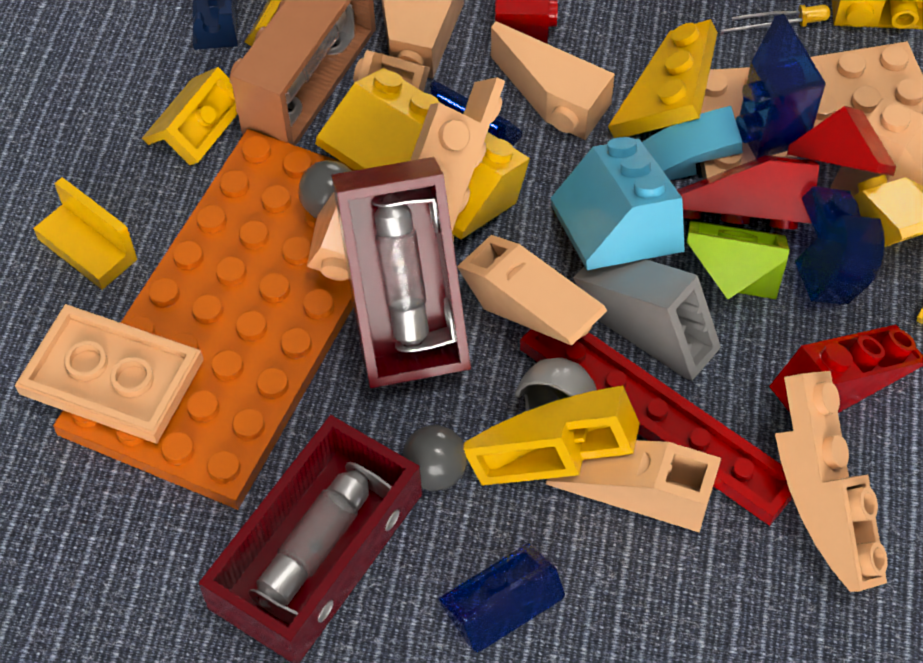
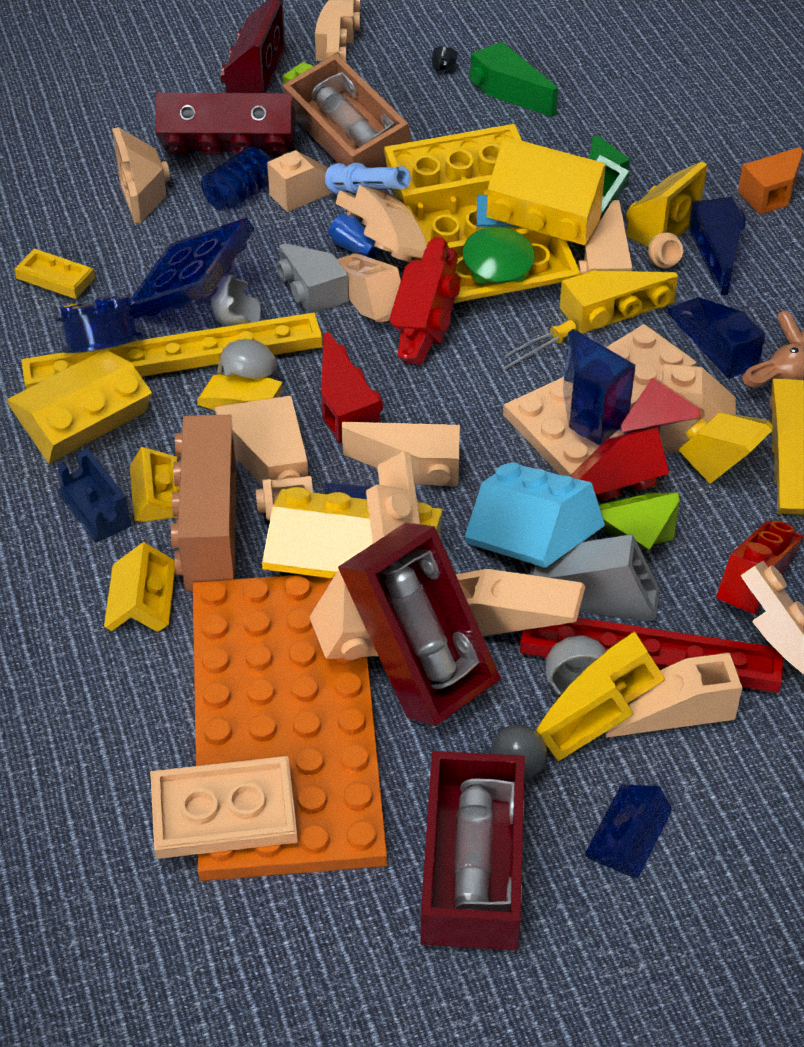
camera: 30 degrees left, 10 degrees down
(87, 236) = (118, 716): yellow panel -> none
(317, 185) = (301, 593): dark grey piece -> none
(671, 84) = (499, 418): yellow wing -> none
(695, 141) = (551, 445): medium azure slope -> none
(846, 250) = (710, 482): clear blue brick -> none

